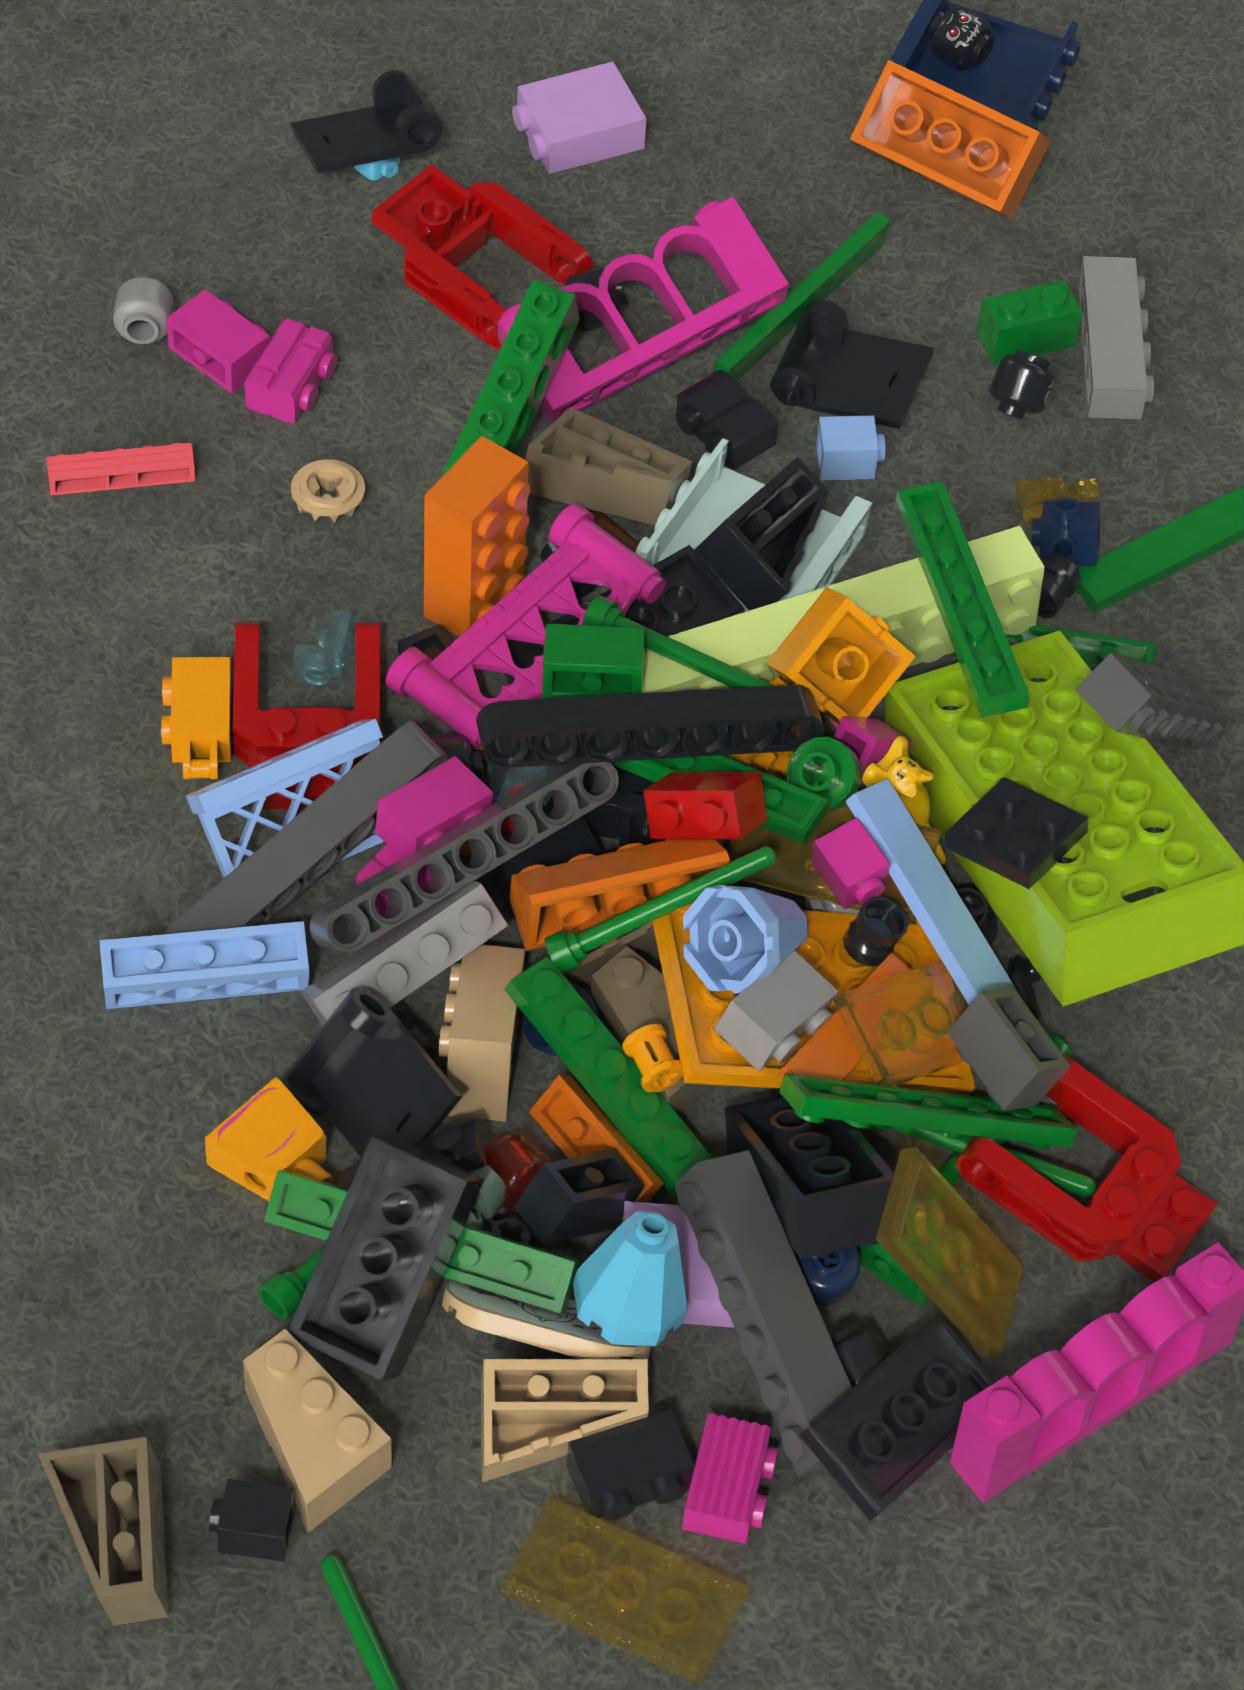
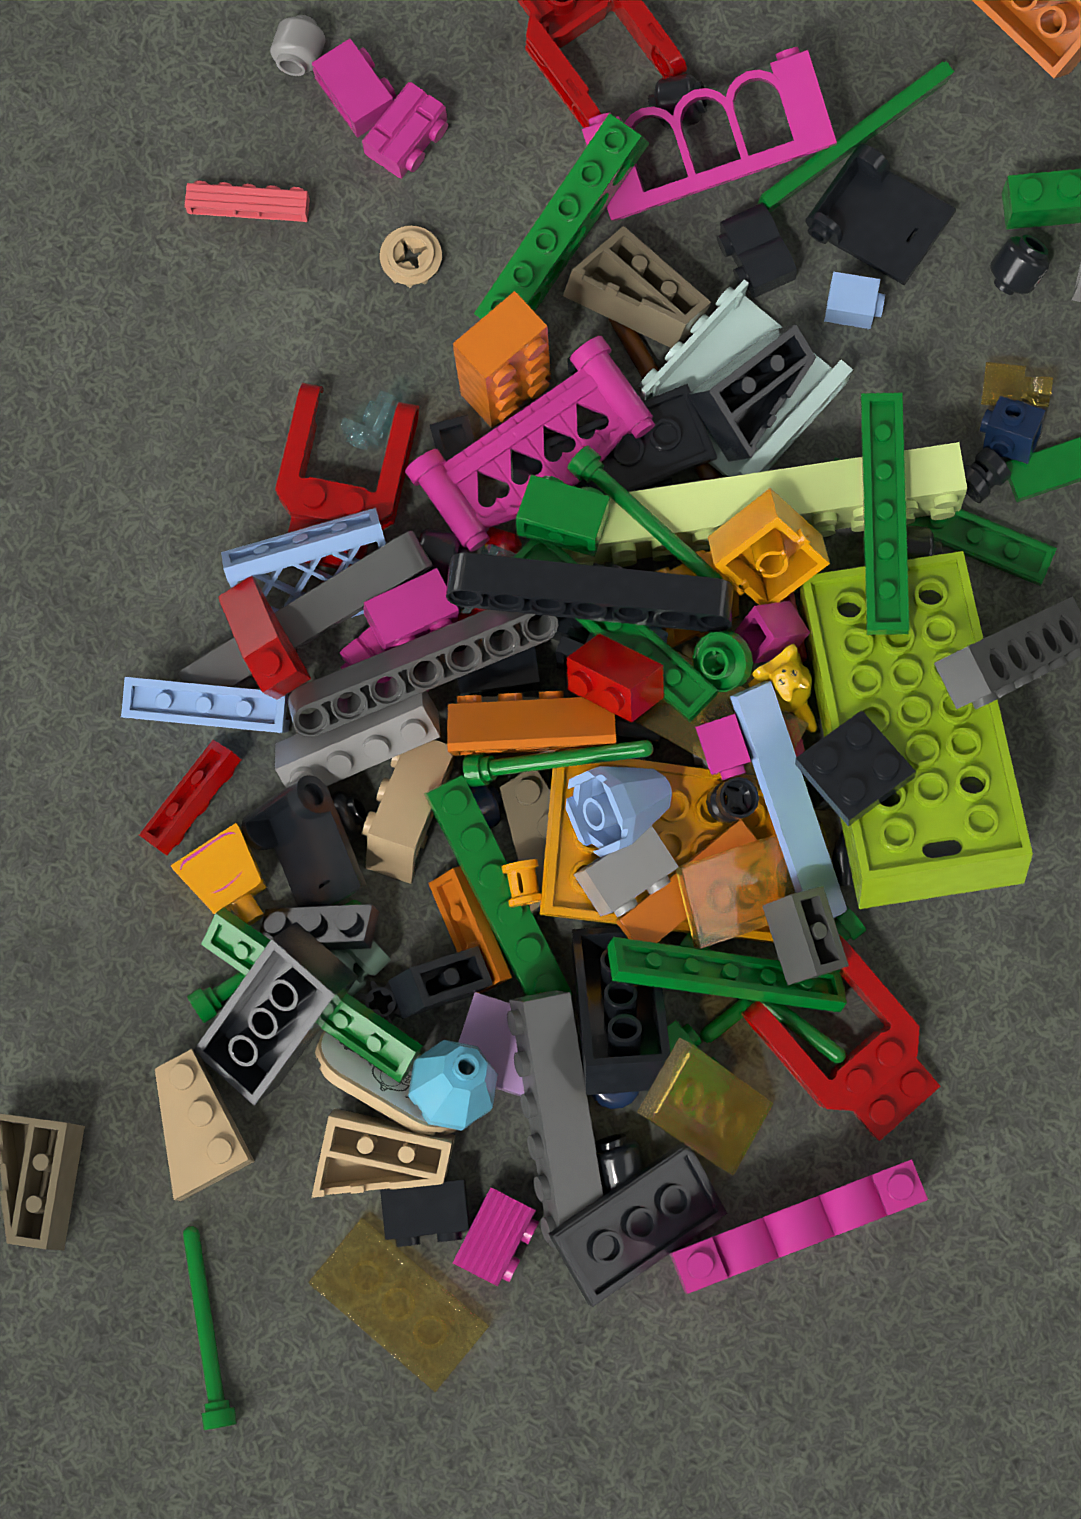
camera: 25 degrees right, 25 degrees up
(199, 714) = (254, 464): light orange brick -> none
(207, 1072) = (190, 797): none -> red plate
(253, 1519) = (139, 1190): black brick -> none
(267, 864) = (262, 640): none -> red slope
(516, 1162) = (403, 938): clear red head -> none

